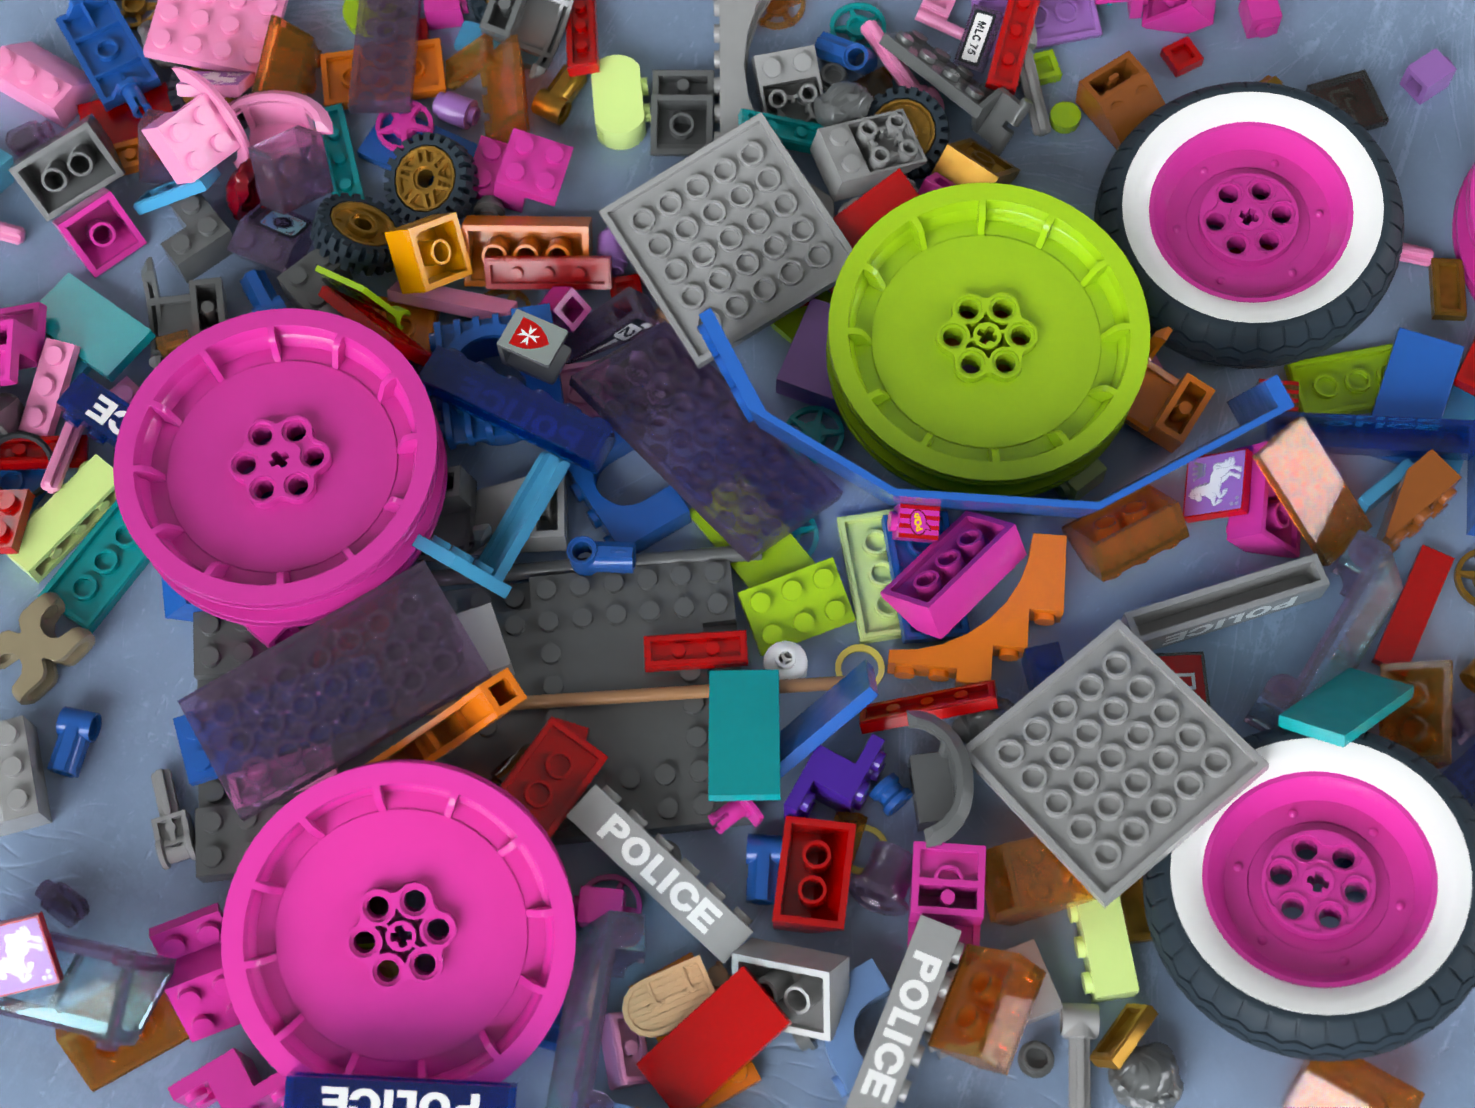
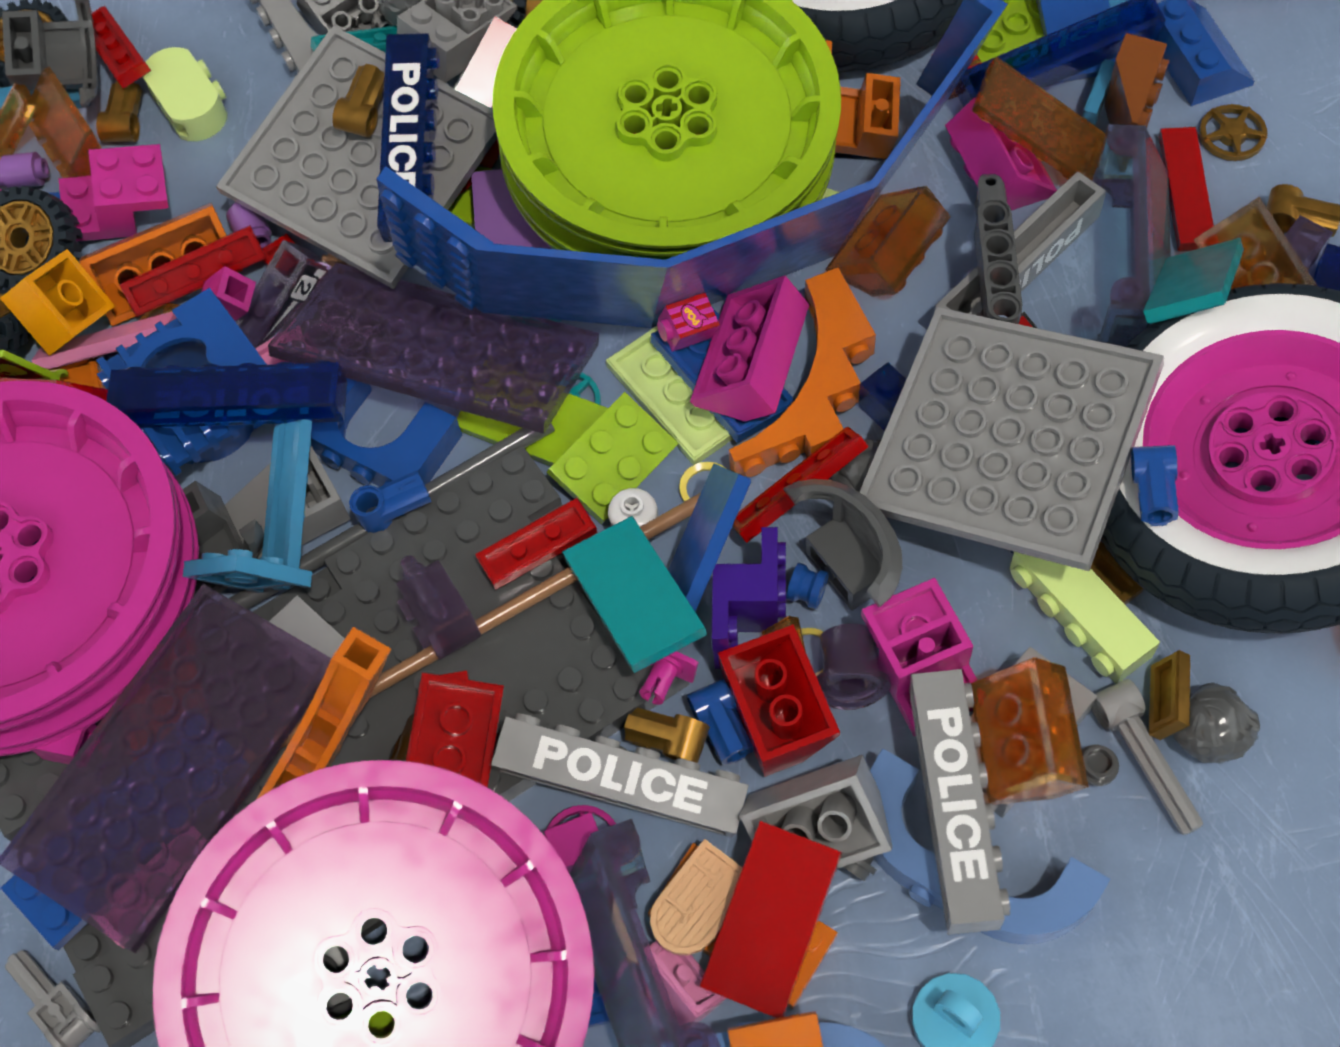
camera: 25 degrees left, 5 degrees down
(489, 206) = (99, 238): dark grey plate -> none
(534, 347) = (214, 328): piece -> none
(590, 666) = (436, 606): none -> clear purple brick
(681, 111) = (250, 73): dark grey slope -> none
(718, 974) = (735, 850): medium nougat piece -> none
(720, 863) = (673, 736): none -> pearl gold piece
(743, 202) = (359, 109): none -> pearl gold piece
(771, 244) = (408, 114): none -> clear blue brick
(1028, 883) = (998, 592): clear orange slope -> none
(1201, 859) = (1155, 474): none -> blue piece
(1218, 486) = (950, 160): tile -> none
(1220, 552) = (996, 235): none -> dark grey piece

